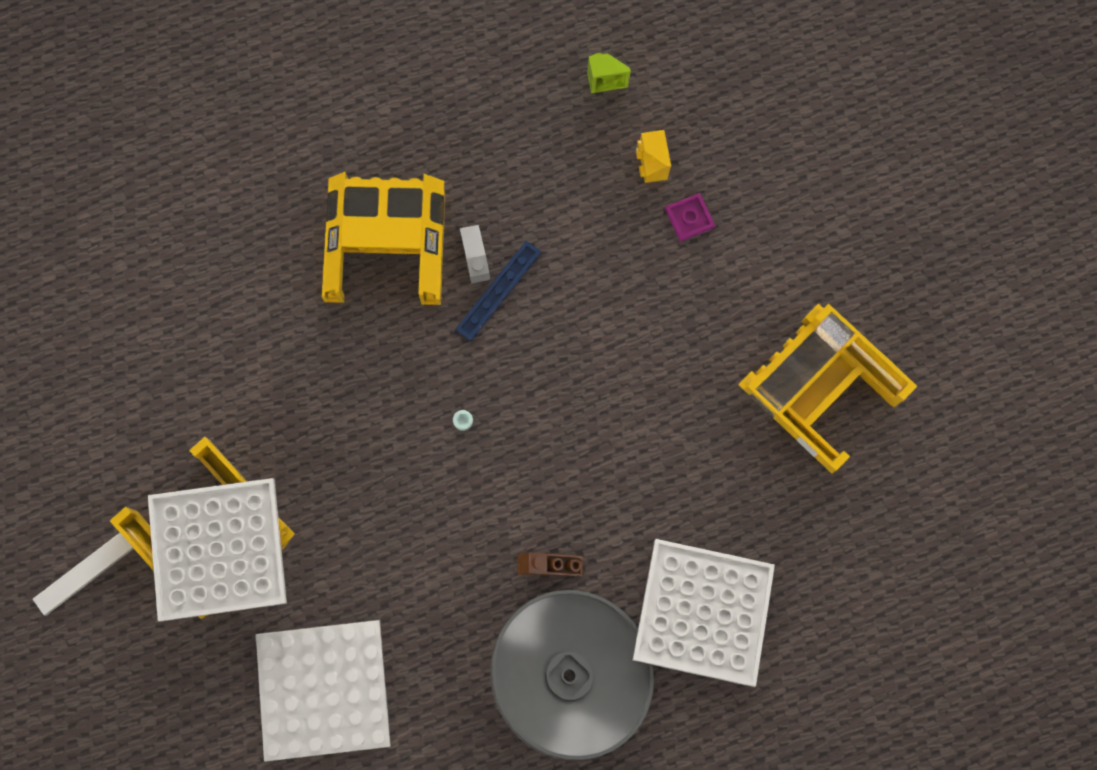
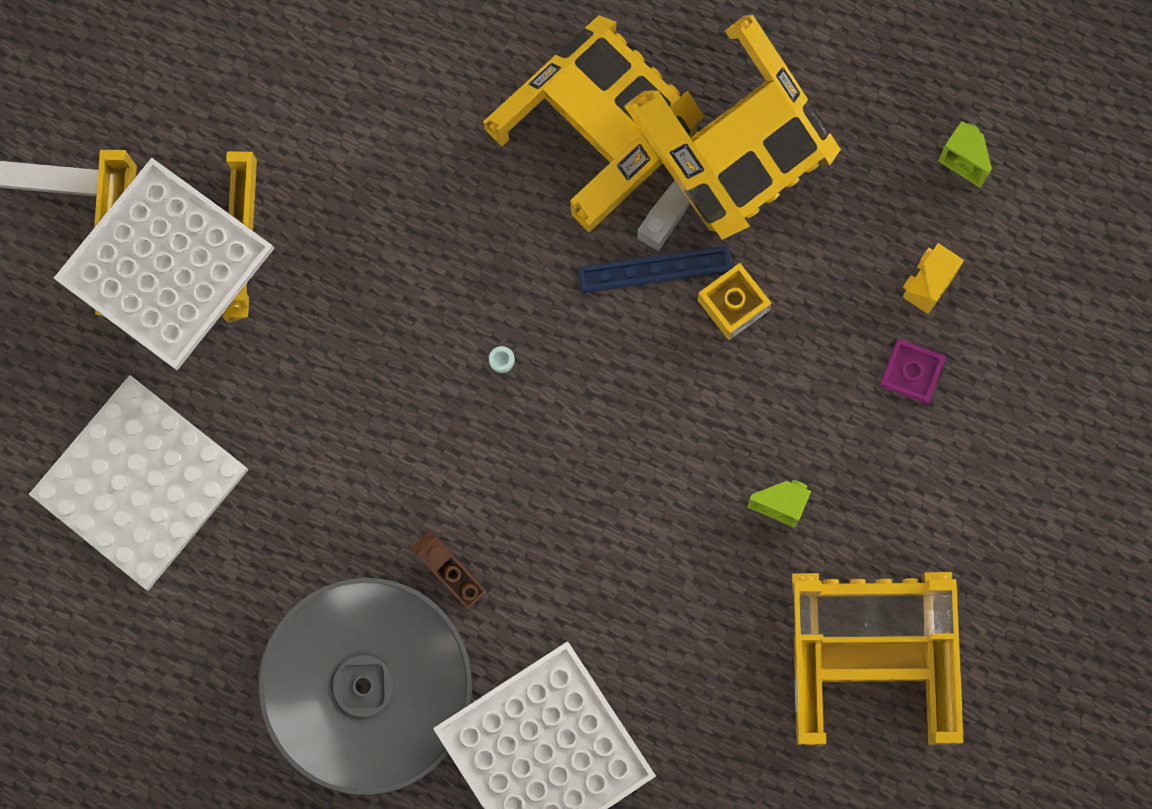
camera: 55 degrees right, 0 degrees up
(489, 176) = (747, 149): none -> yellow piece
(560, 267) = (734, 301): none -> yellow brick
(696, 351) = (781, 502): none -> lime slope

